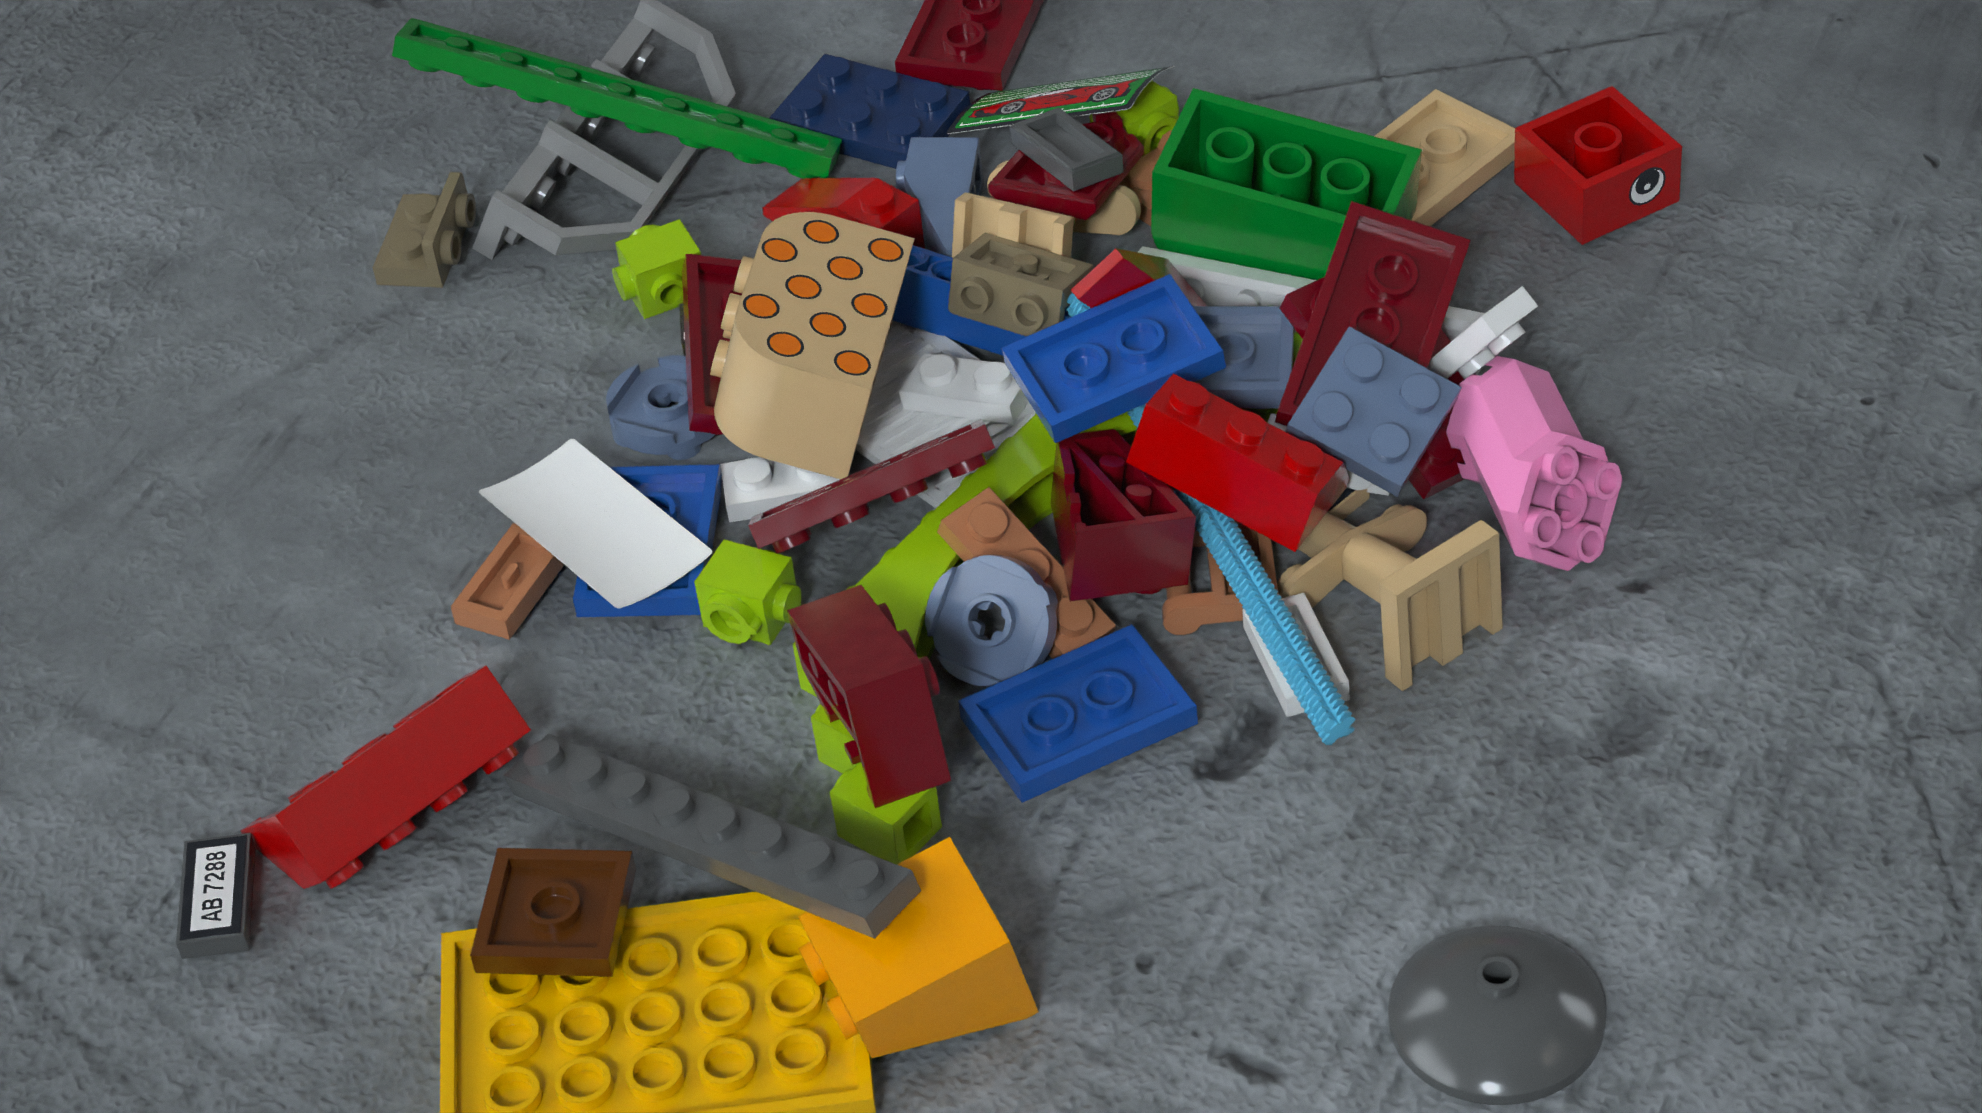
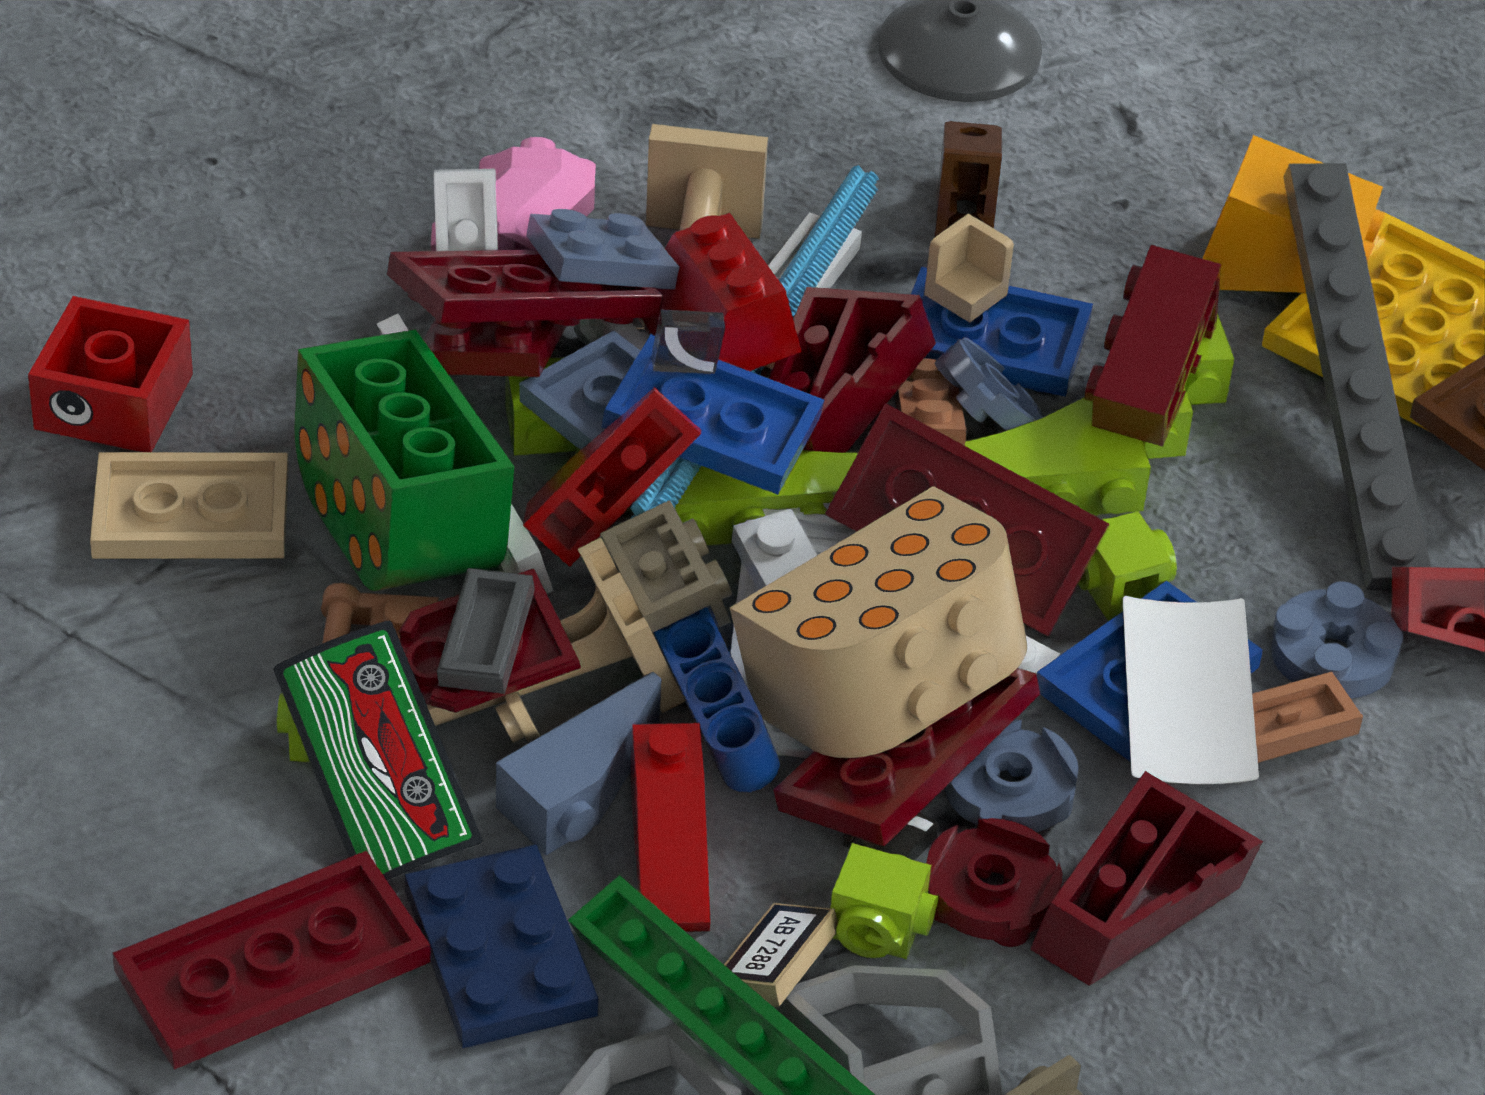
camera: 145 degrees left, 0 degrees up
(496, 380) = (1143, 879): none -> dark red wedge
(544, 649) = (1343, 615): none -> sand blue plate
(592, 364) = (993, 911): none -> dark red plate
(689, 194) = (782, 949): none -> tile
(1129, 696) = (969, 267): none -> tan panel
(1166, 329) = (688, 341): none -> clear smoke tile
(1257, 800) = (968, 172): none -> reddish brown torso

